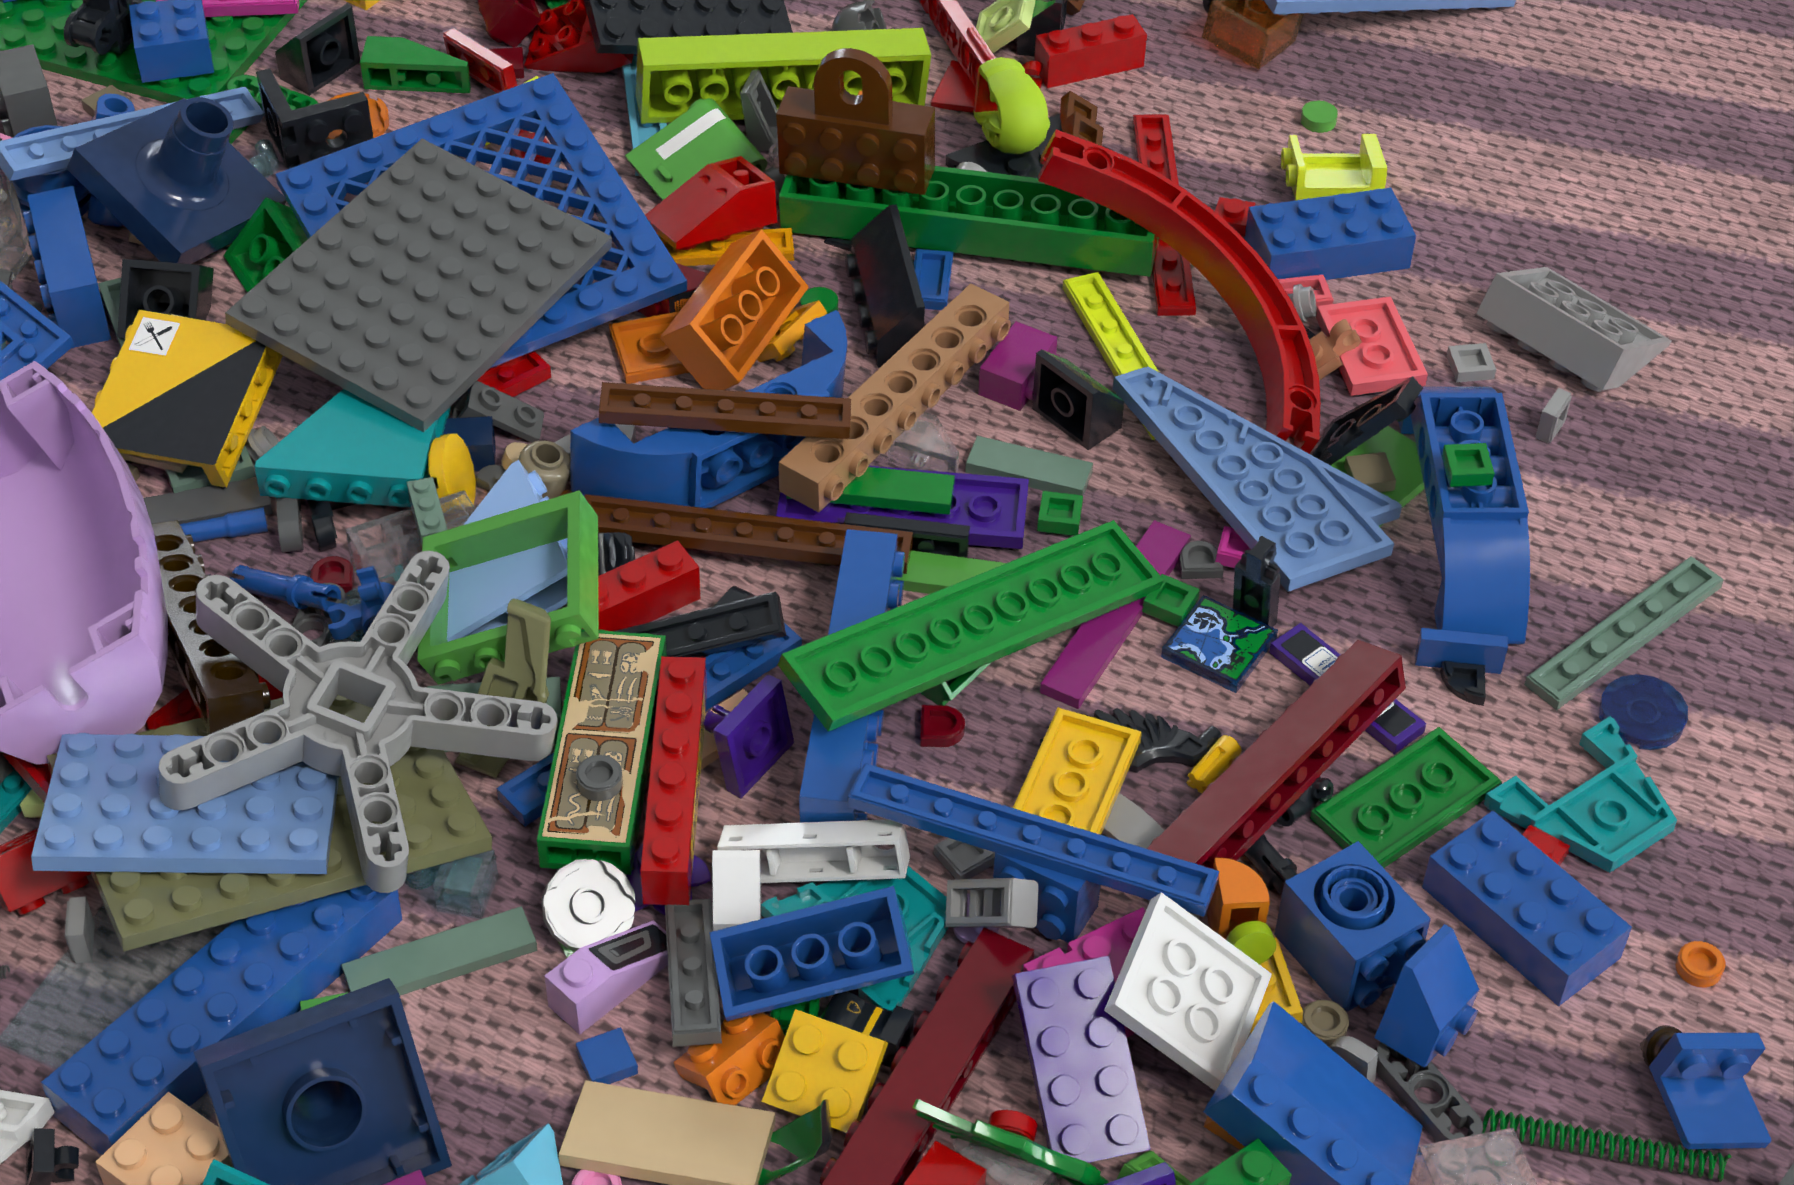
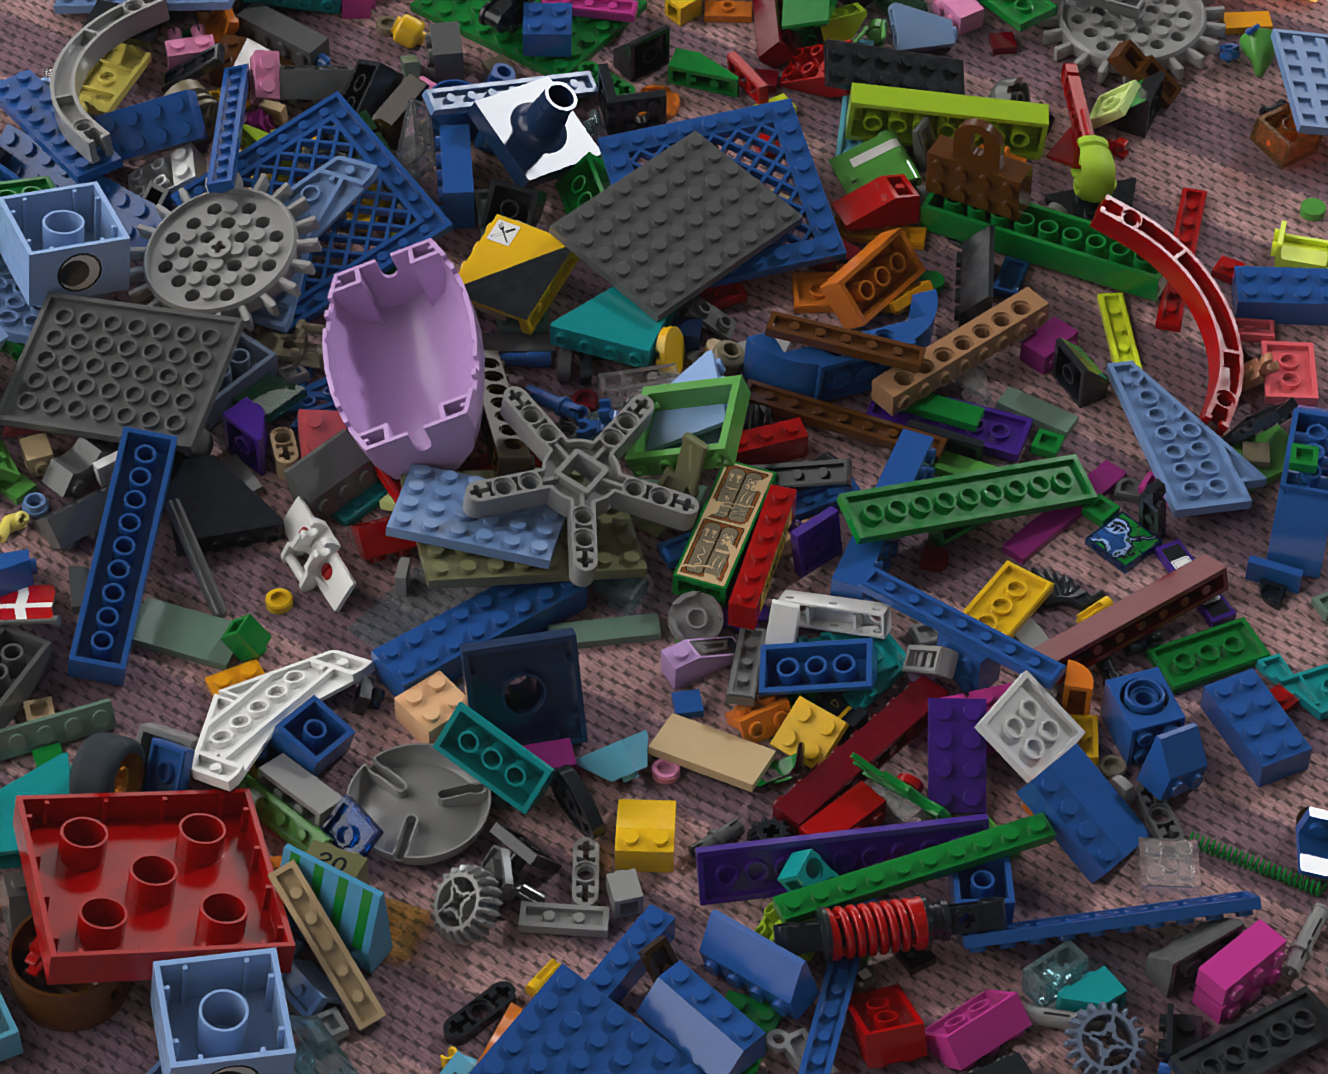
camera: 15 degrees right, 0 degrees up
(260, 442) = (556, 310): light grey plate -> none
(426, 507) = (649, 368): sand green piece -> none
(599, 778) = (717, 547): dark grey tile -> none
(1079, 118) = (1142, 188): reddish brown slope -> none
(1090, 50) = (1166, 136): red brick -> none
(1254, 940) = (1080, 711): lime tile -> none
(1304, 302) = (1251, 336): light grey plate -> none

